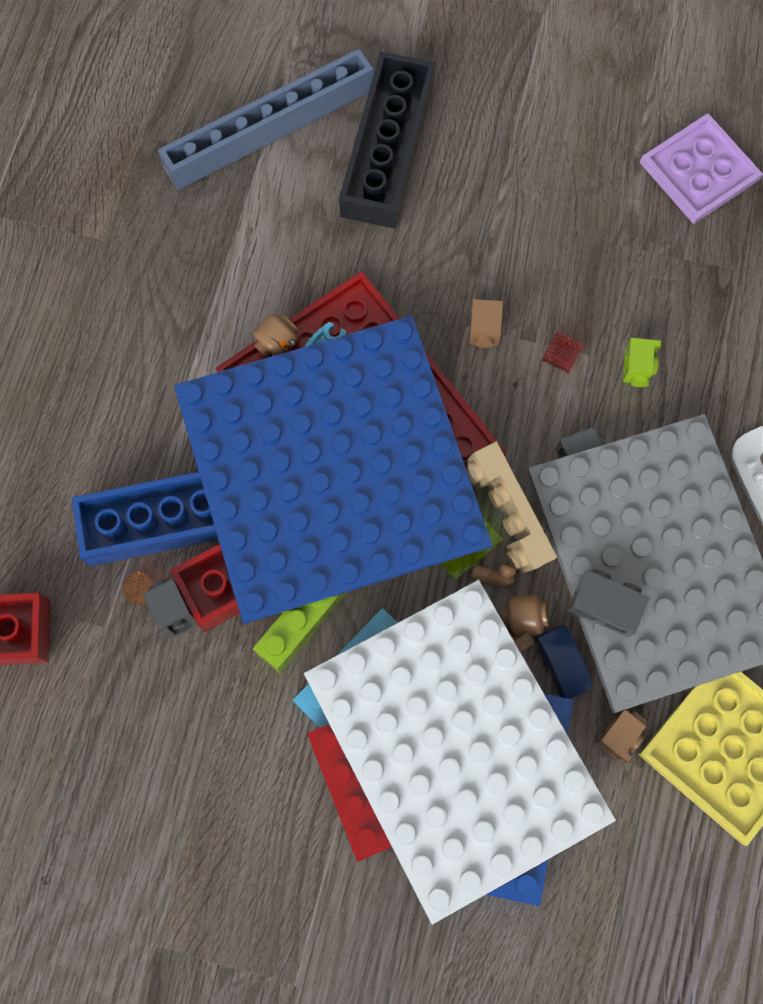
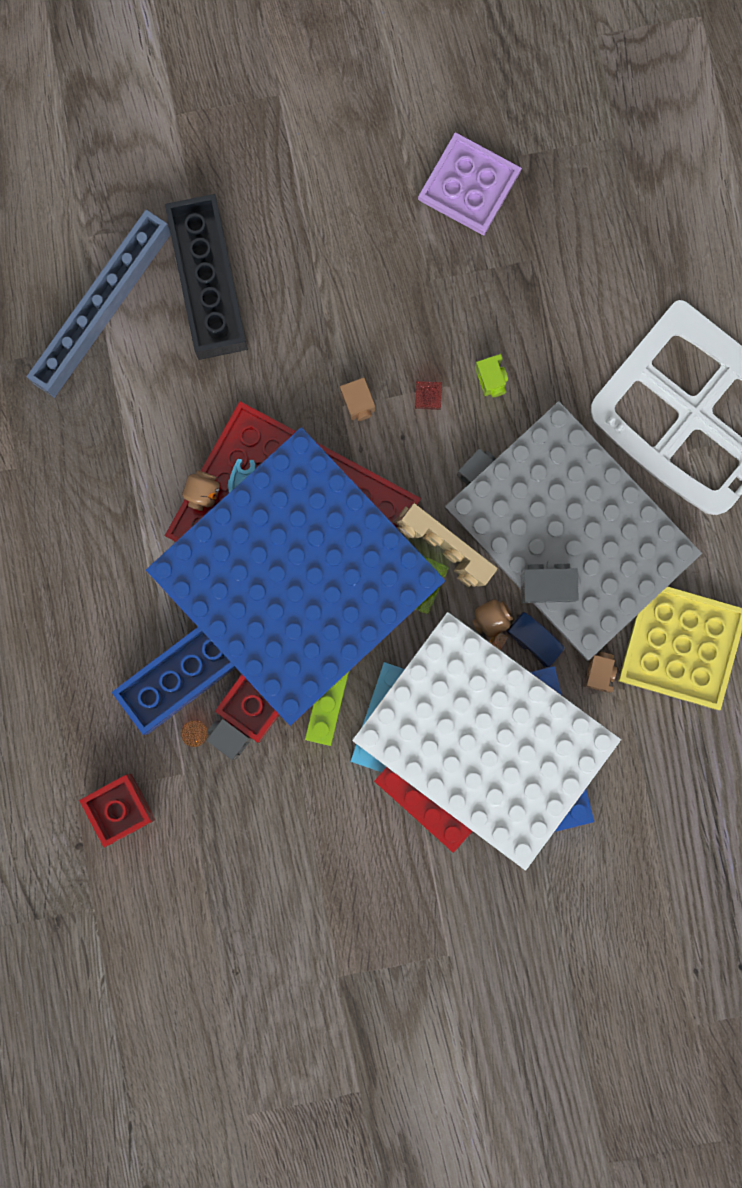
camera: 25 degrees left, 10 degrees up
(503, 577) = (452, 600): medium nougat arm -> none

